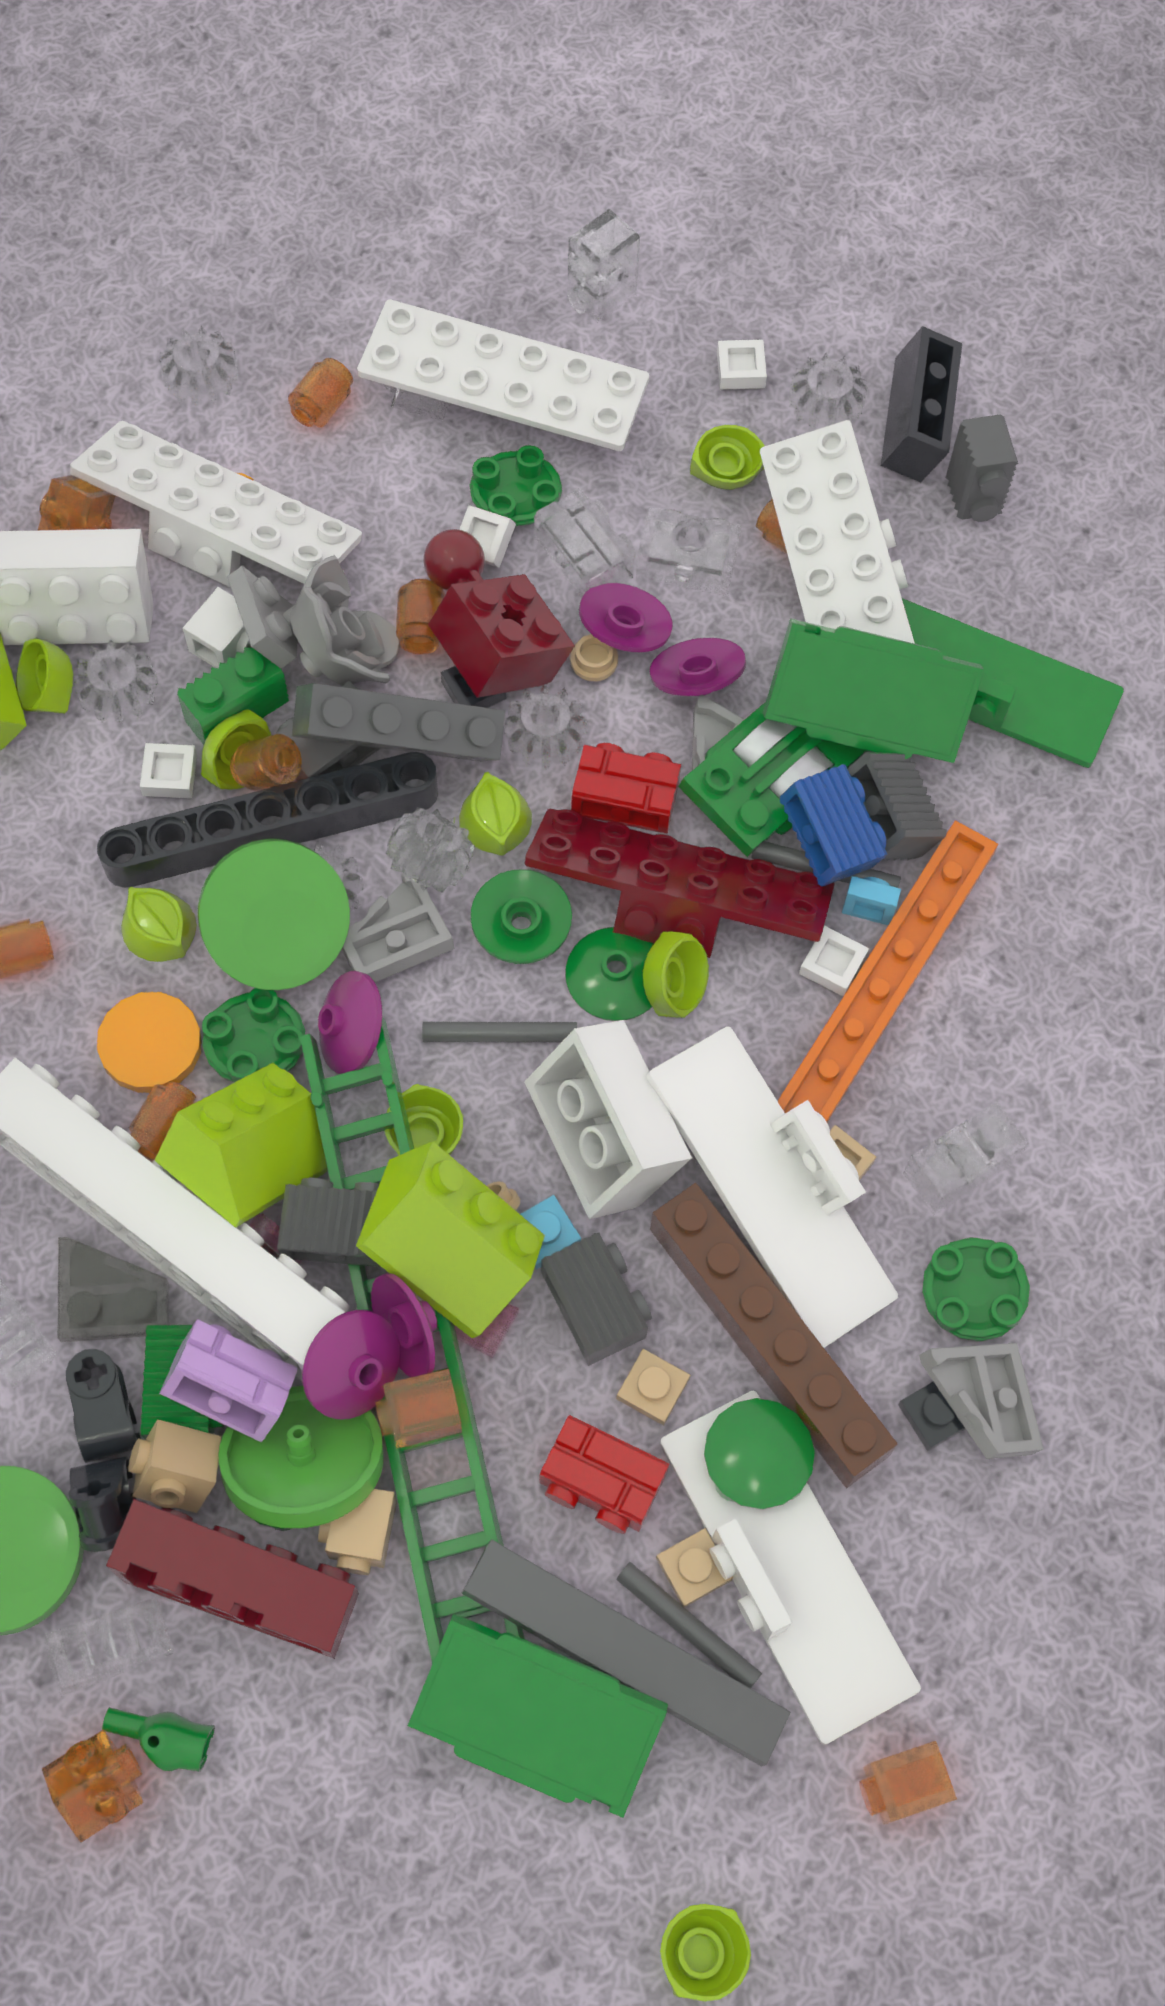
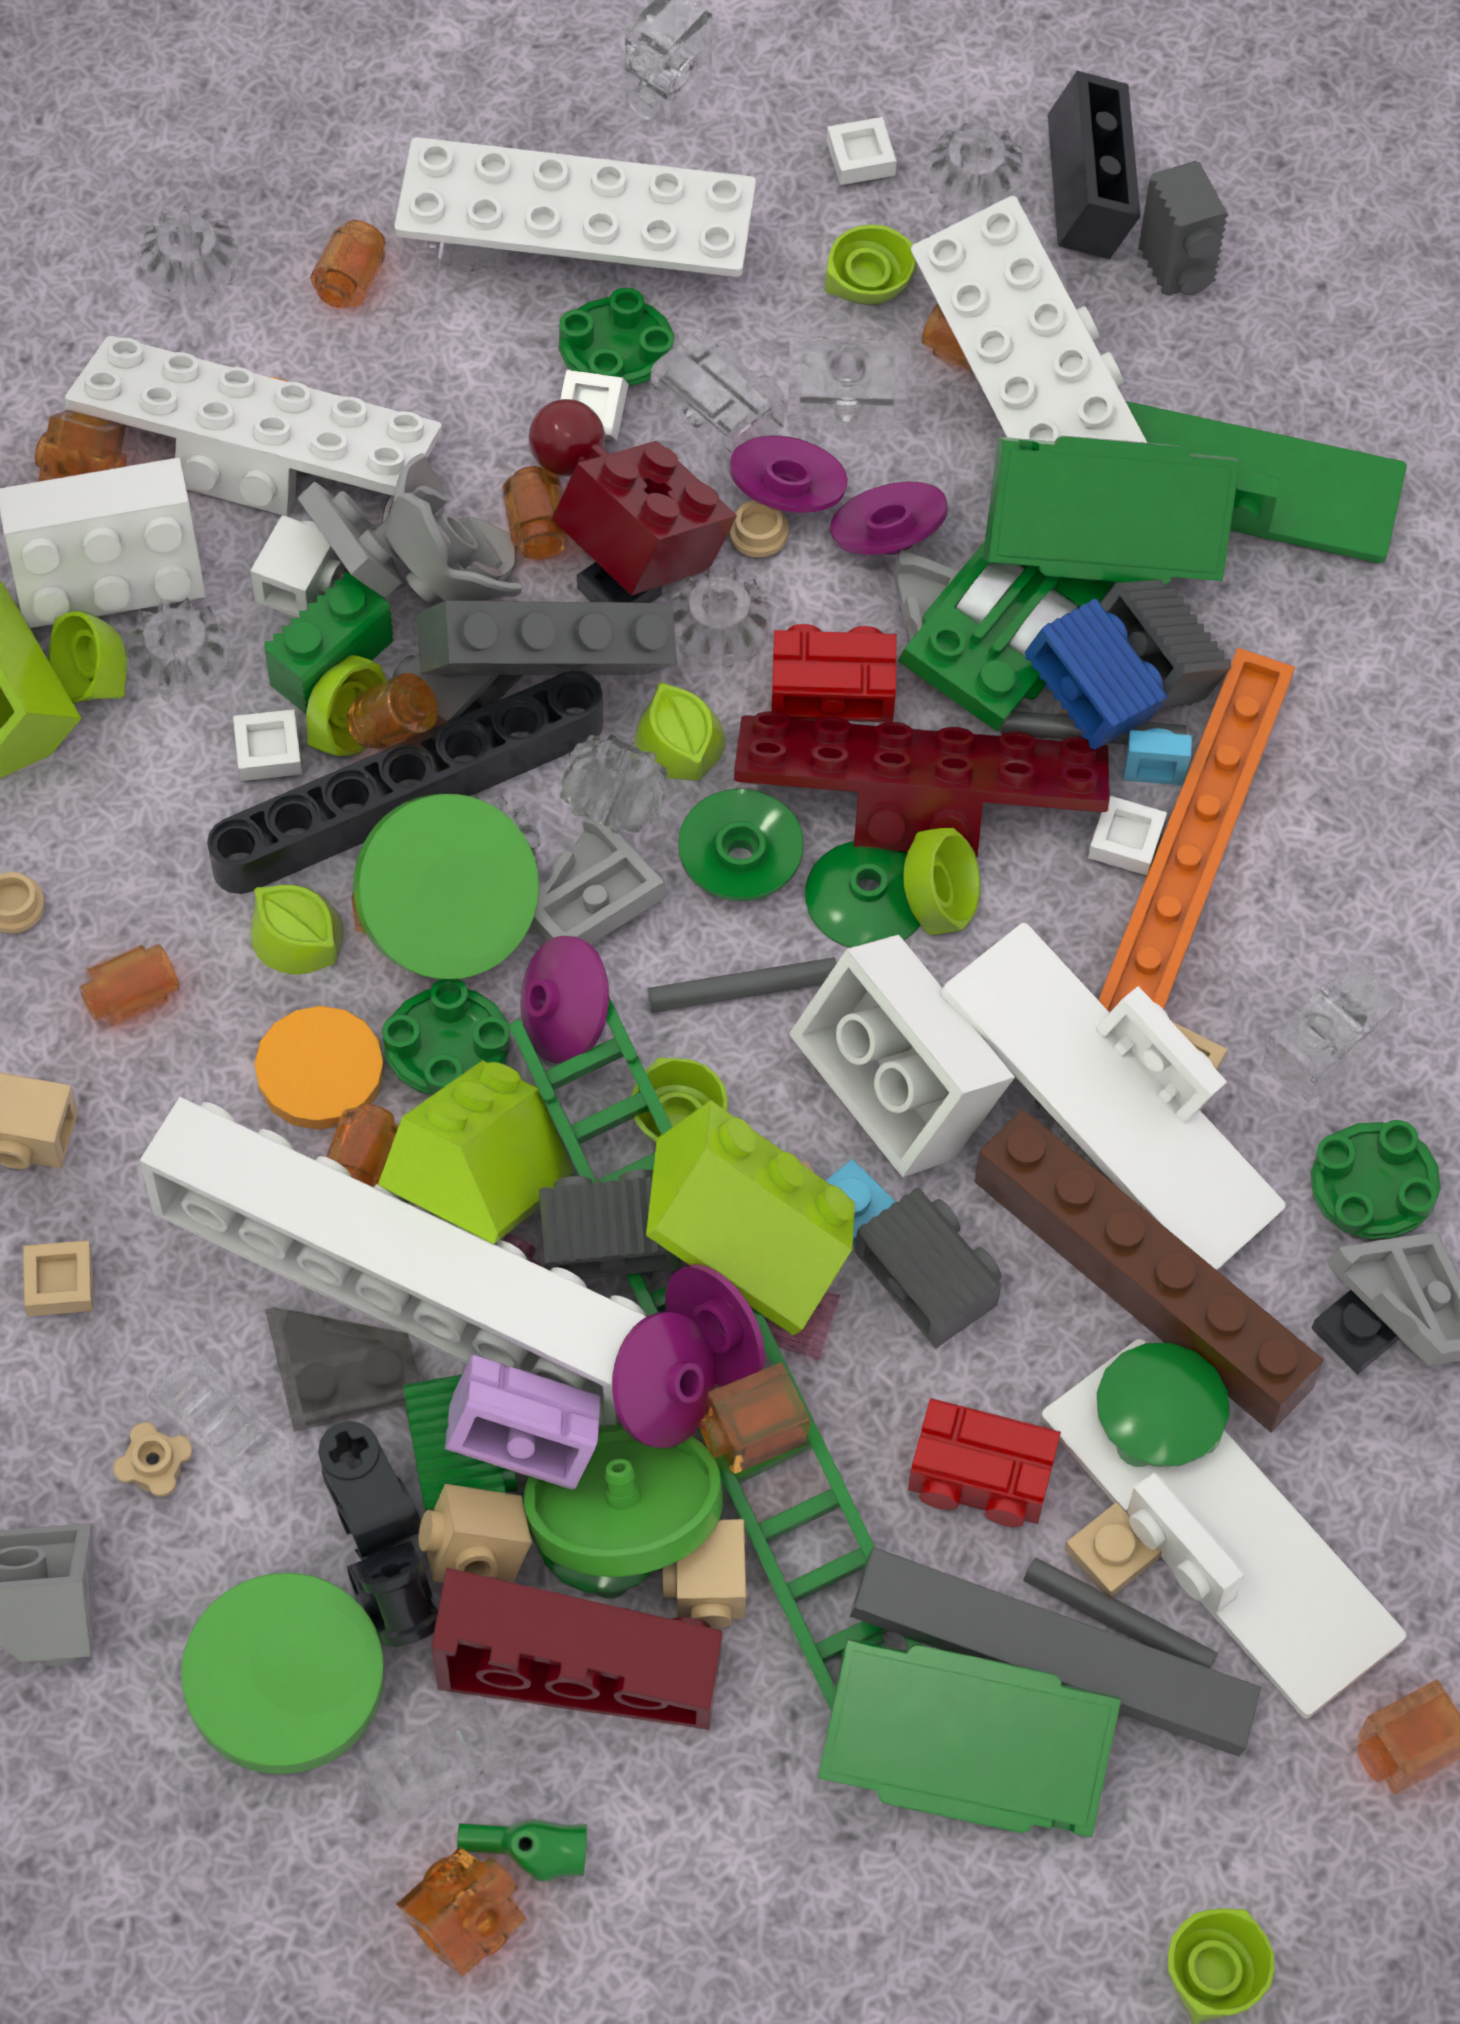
camera: 10 degrees left, 5 degrees down
(653, 1387) = (1019, 1357): tan plate -> none

